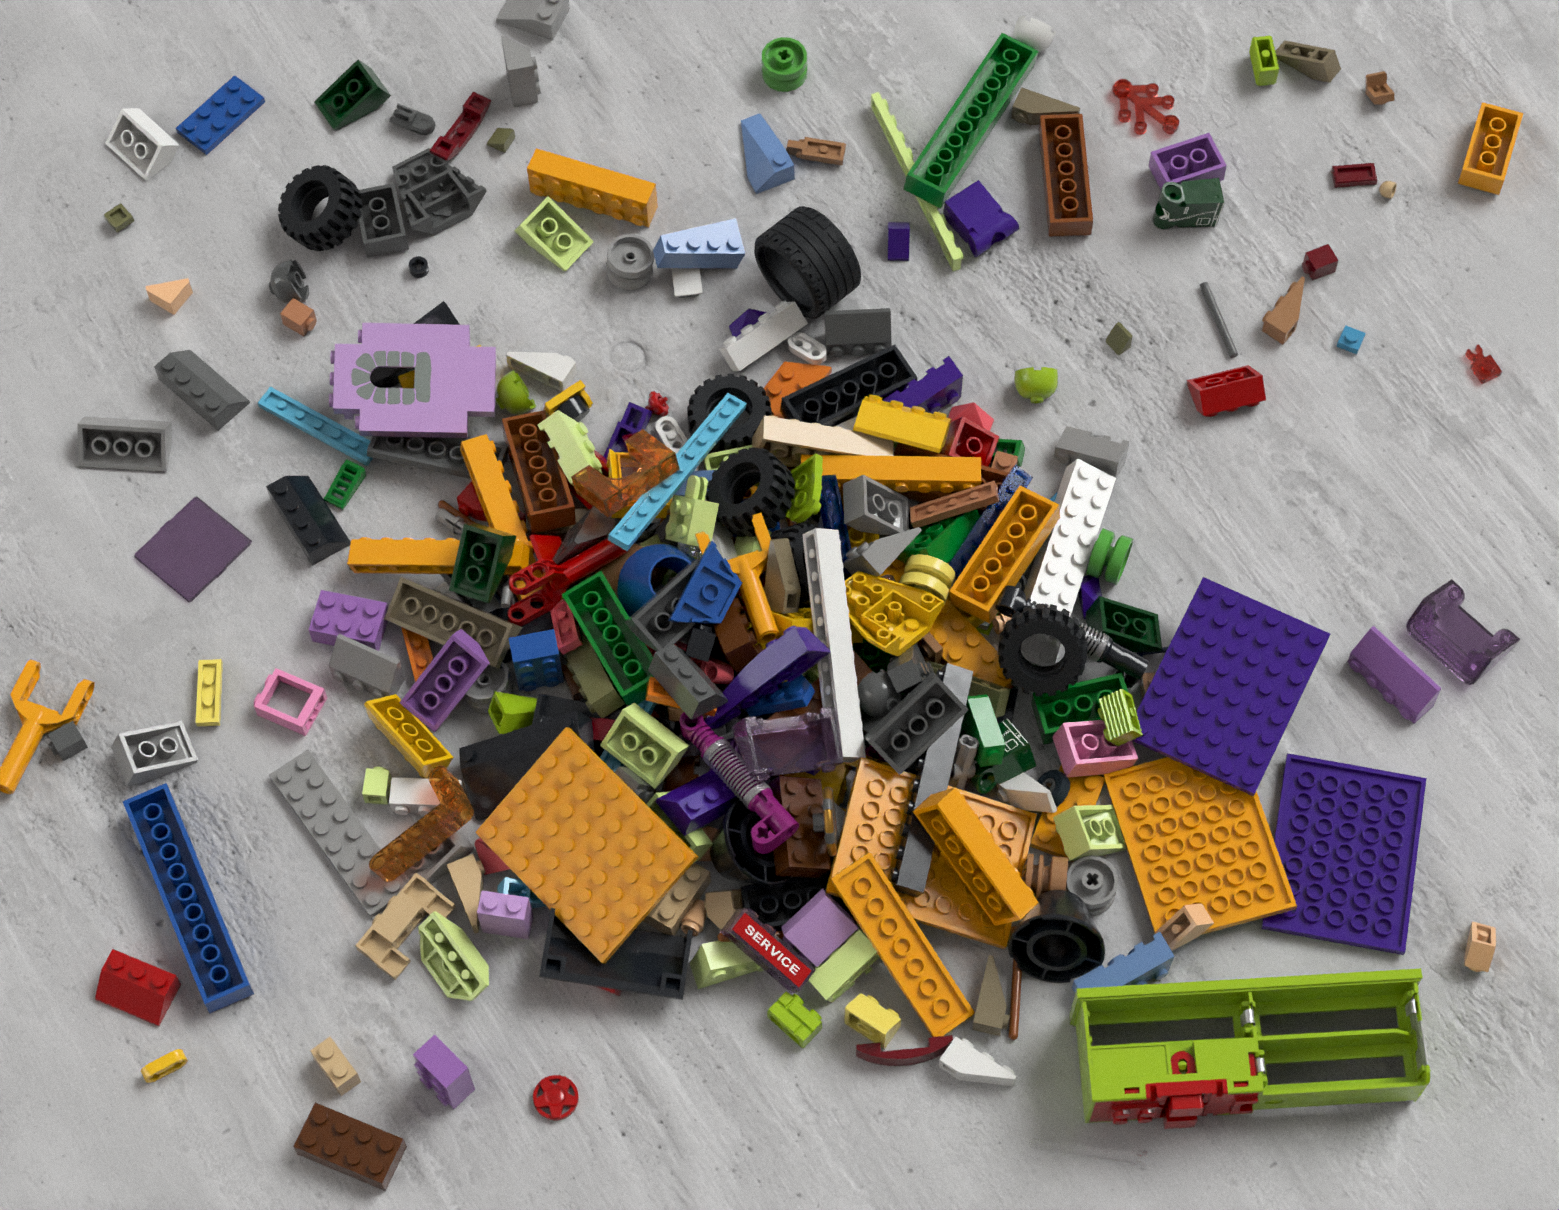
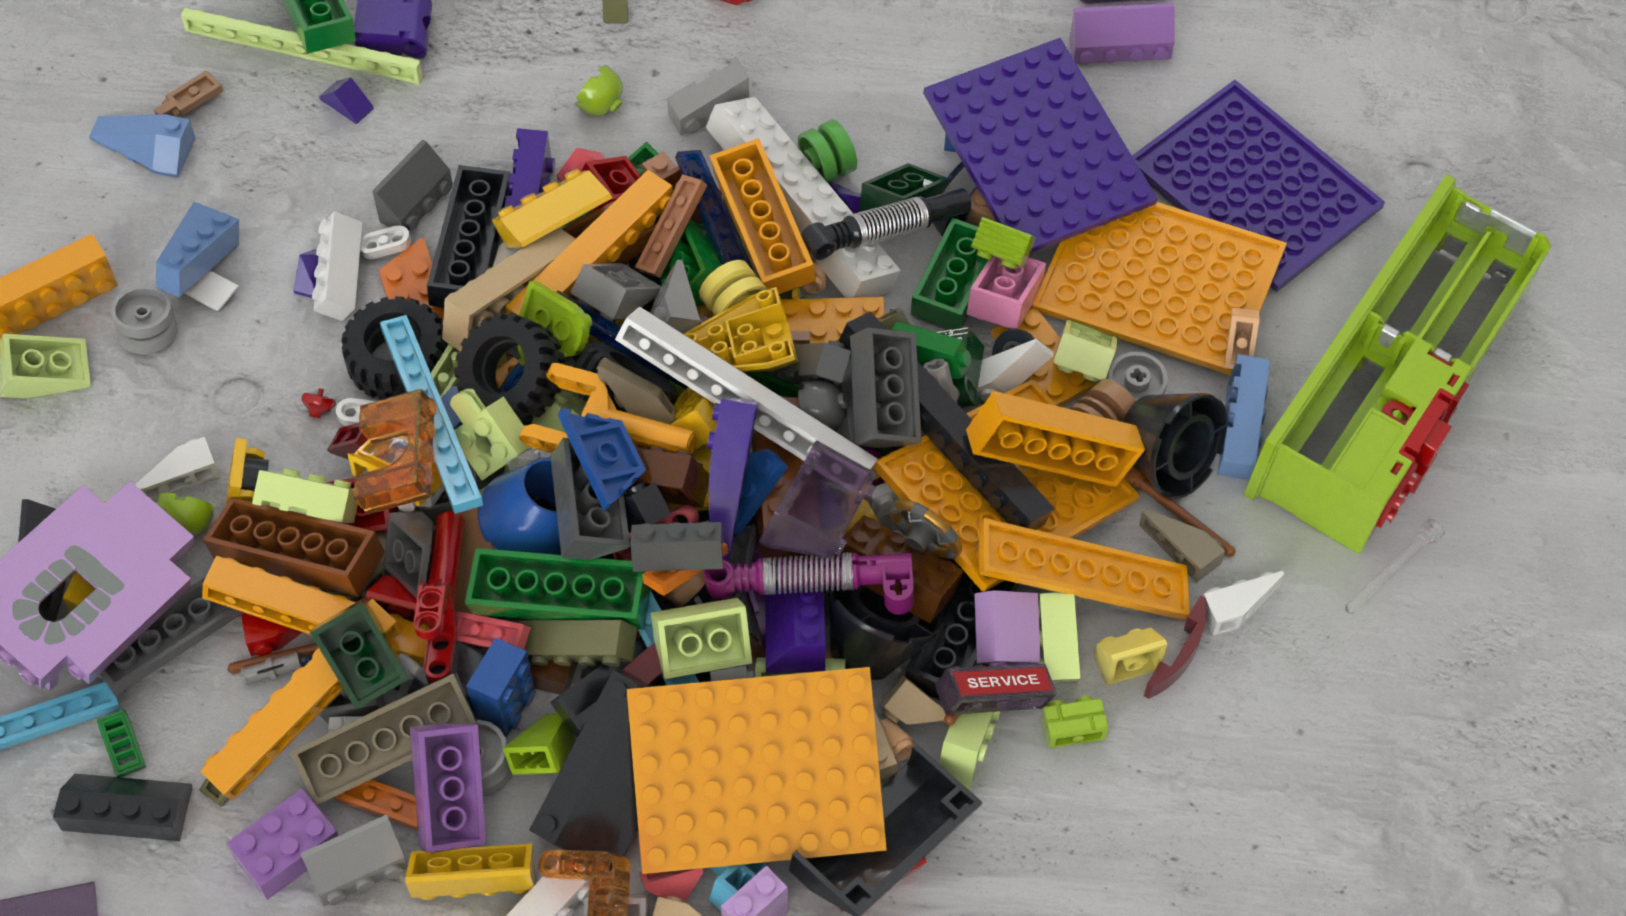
camera: 55 degrees left, 5 degrees down
(633, 421) = (318, 437): dark purple slope -> none
(784, 64) = (73, 60): bright green wheel -> none
(807, 261) = (308, 138): black tyre -> none
(1042, 678) = (920, 249): black tyre -> none
(1480, 947) = (1421, 148): light nougat slope -> none

